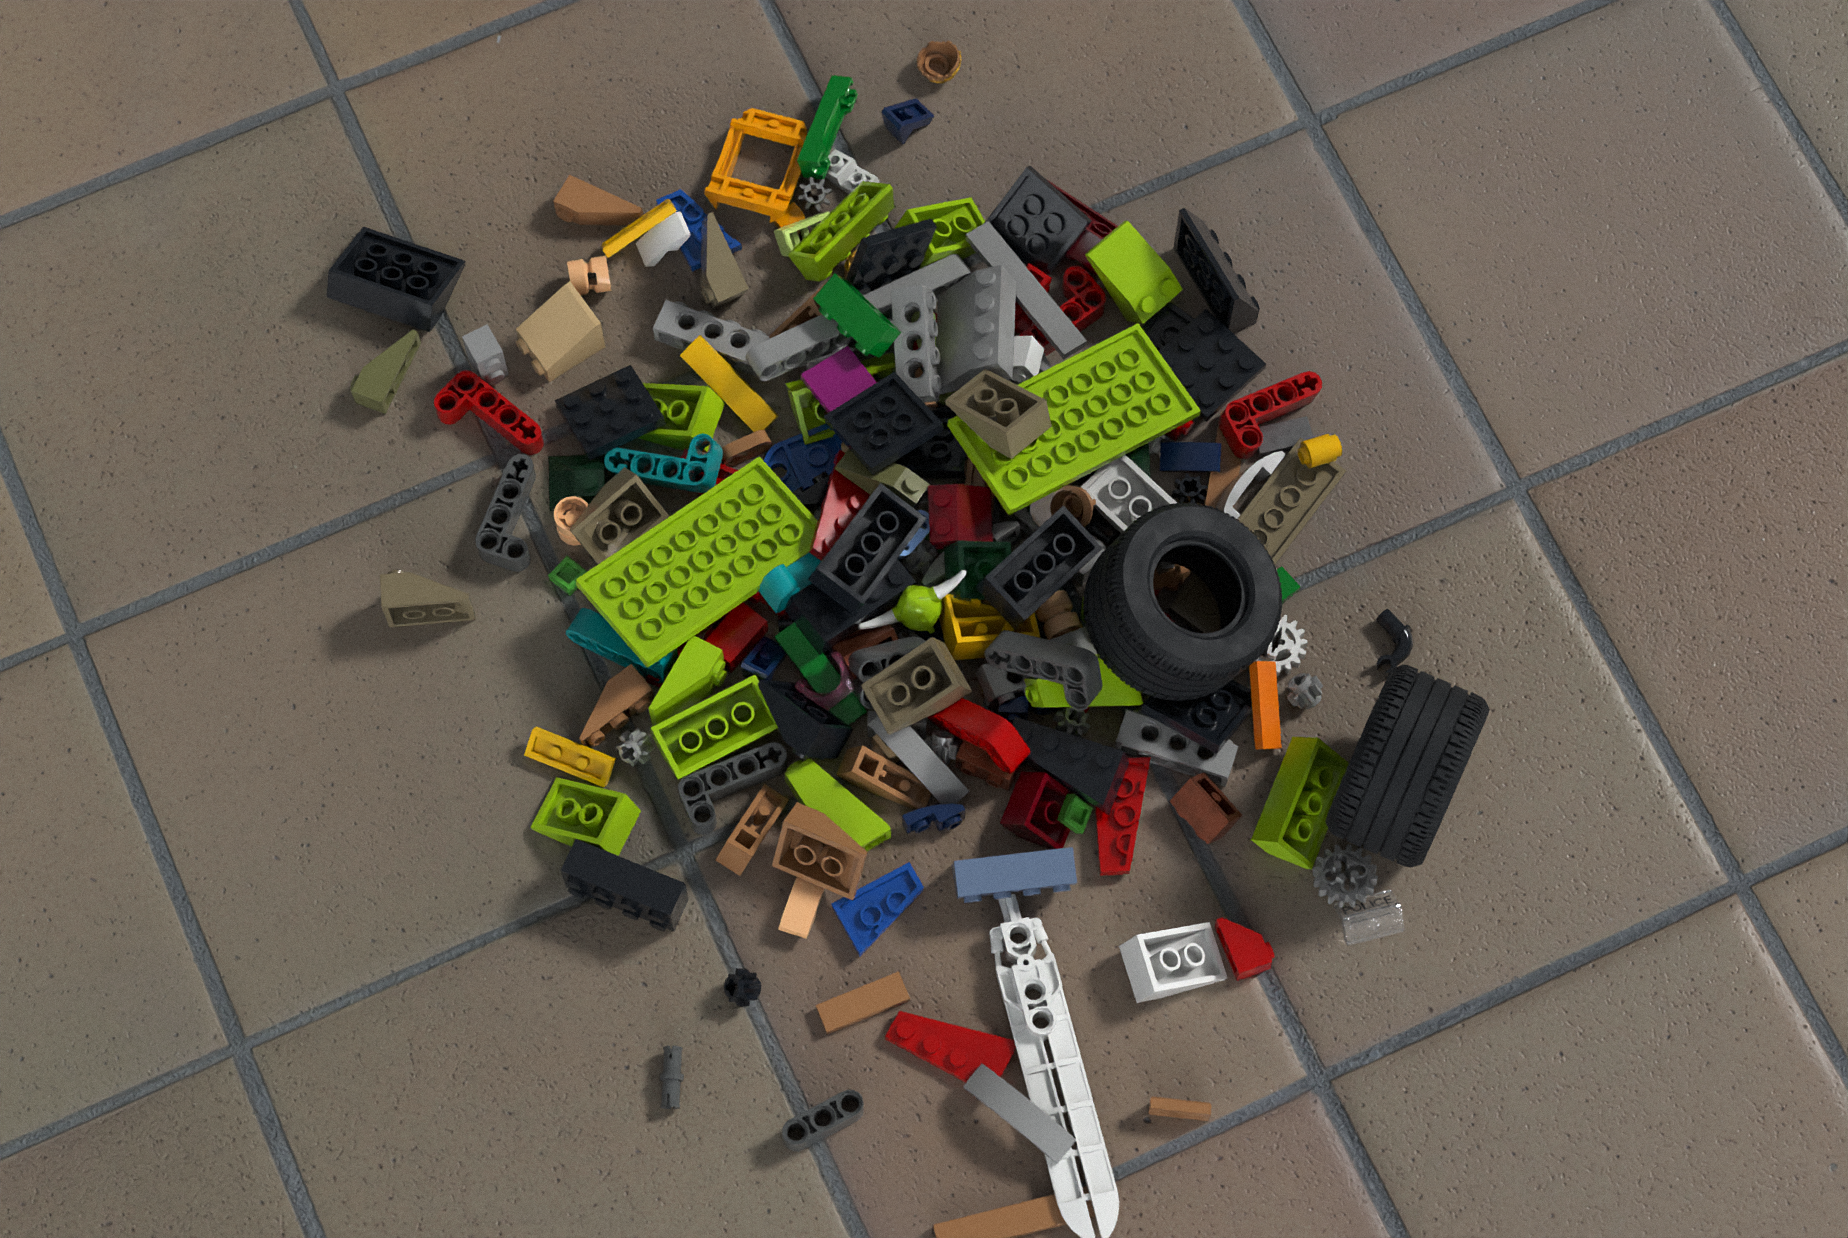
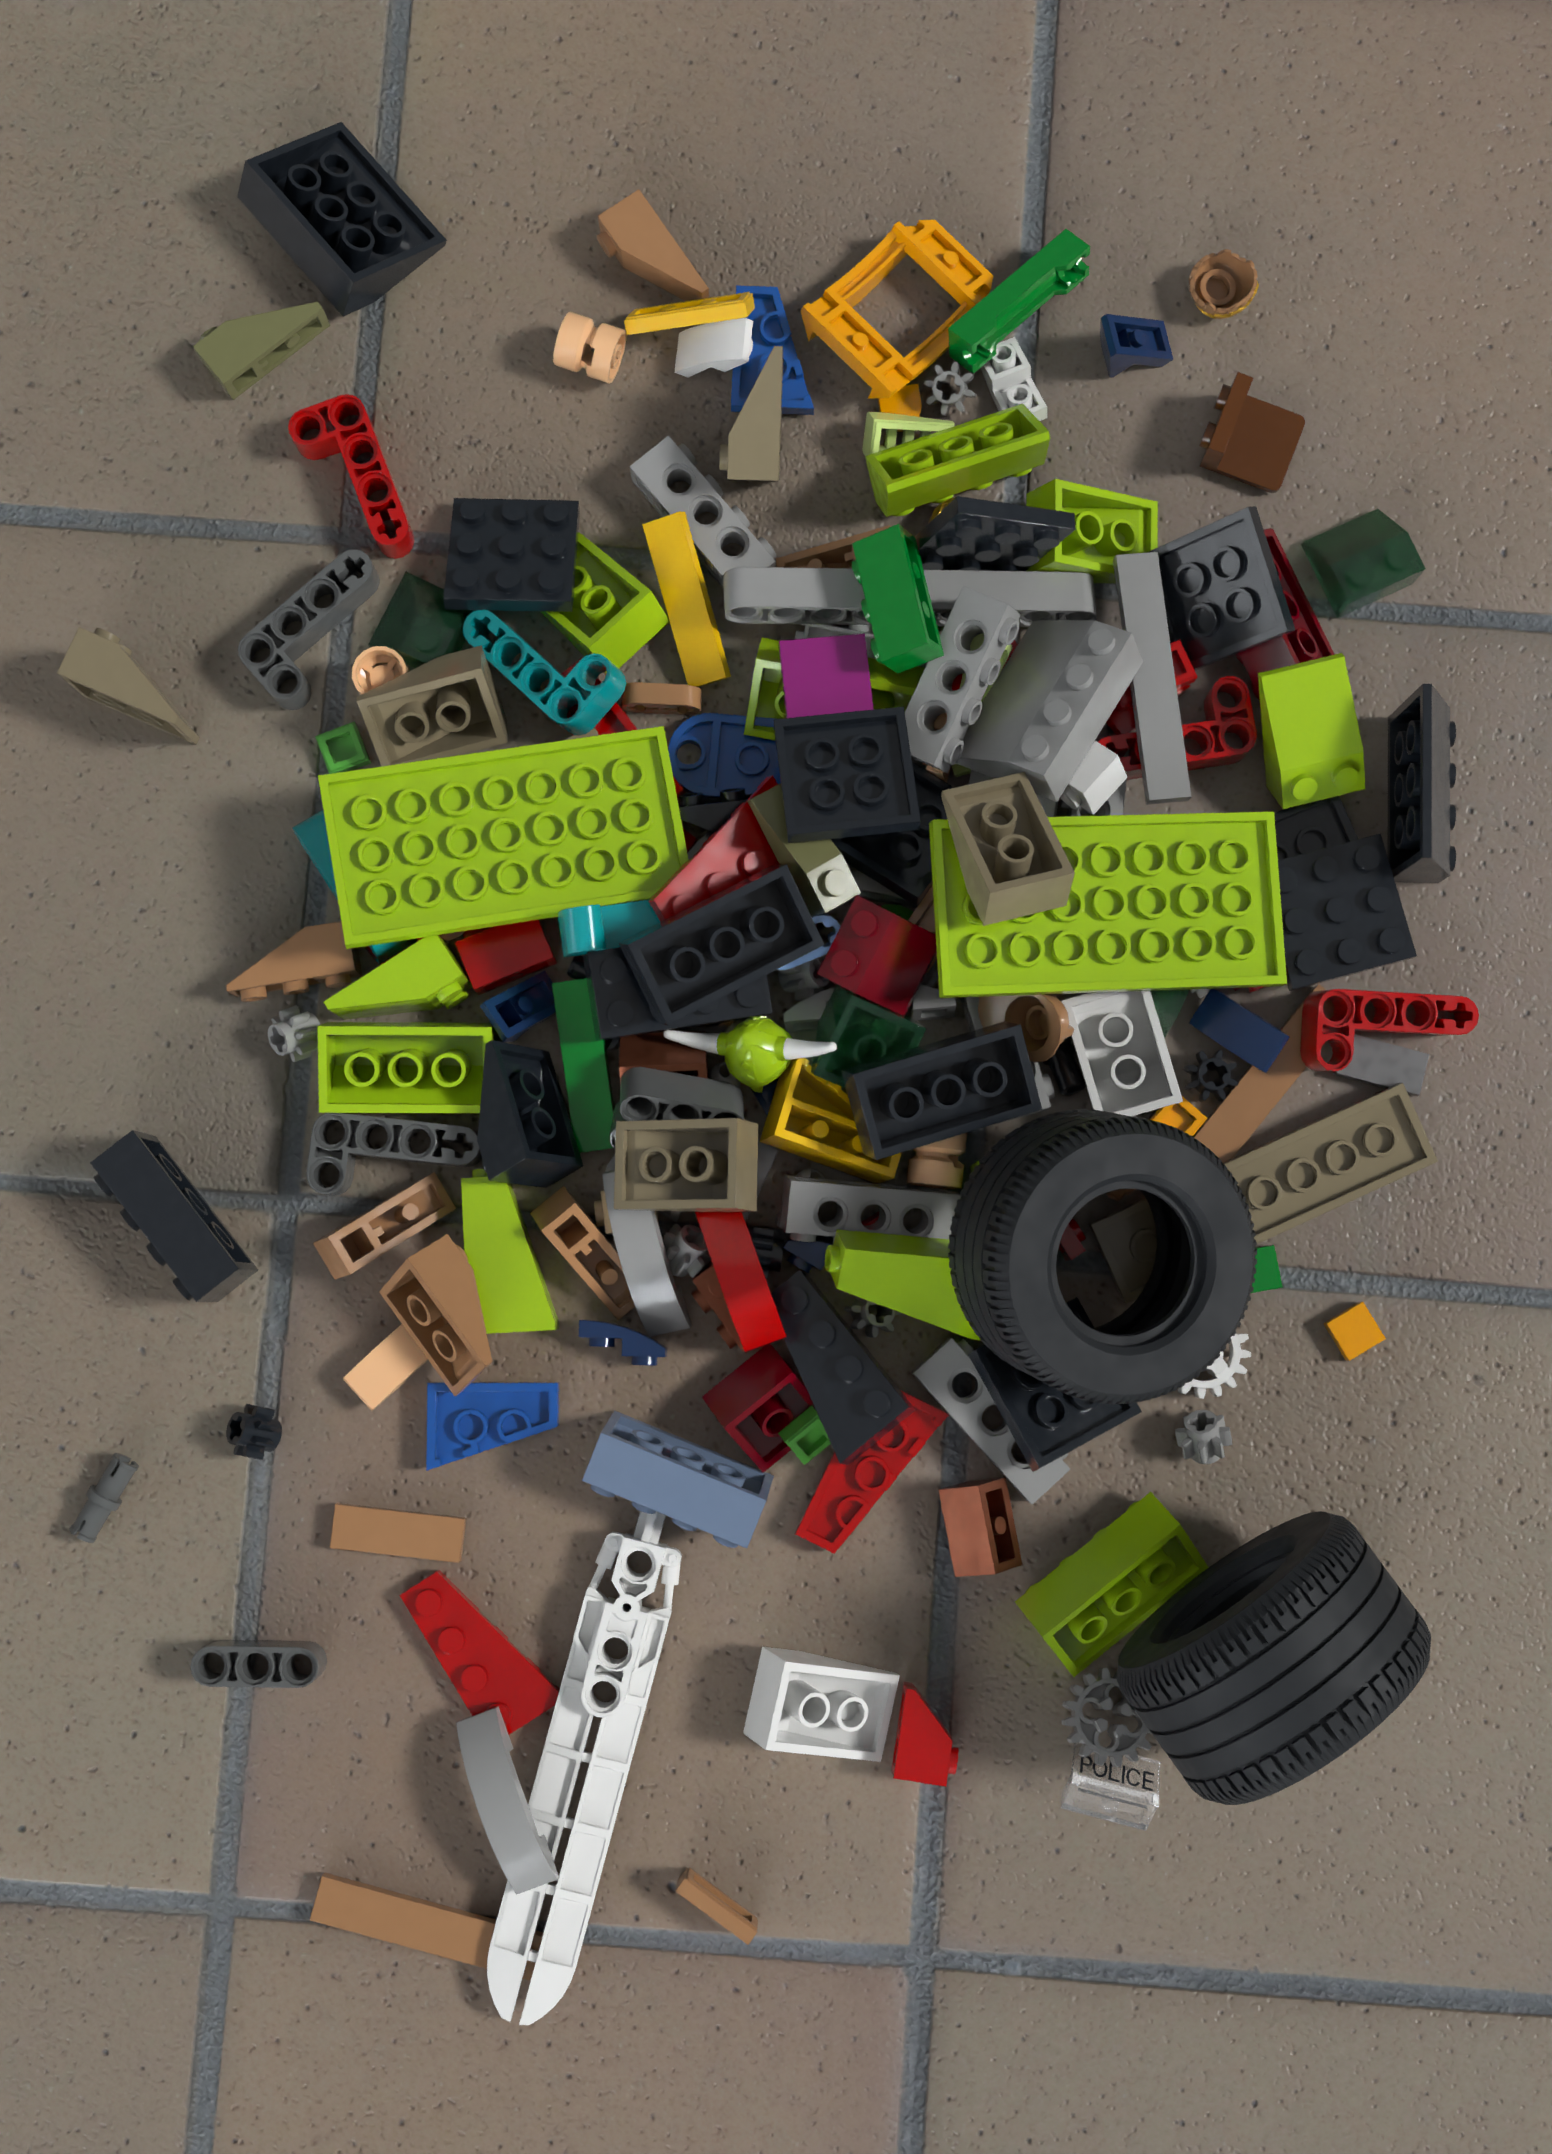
camera: 30 degrees right, 15 degrees up
(485, 355) = (391, 389): light grey brick -> none
(560, 333) = (506, 410): tan slope -> none
(570, 756) = (207, 1000): yellow plate -> none
(586, 814) = (183, 1095): lime slope -> none
(830, 699) = (575, 1107): clear pink helmet -> none
(1004, 136) = (1250, 438): none -> reddish brown bracket
(1049, 660) = (875, 1234): dark grey beam -> none
(1108, 170) = (1363, 561): none -> clear green slope
(1257, 471) = (1234, 1140): light grey slope -> none
(1265, 705) = (1134, 1443): orange tile -> none
(1319, 450) = (1417, 1120): yellow brick -> none
(1356, 590) = (1354, 1331): none -> light orange tile
(1401, 637) = (1376, 1432): black piece -> none

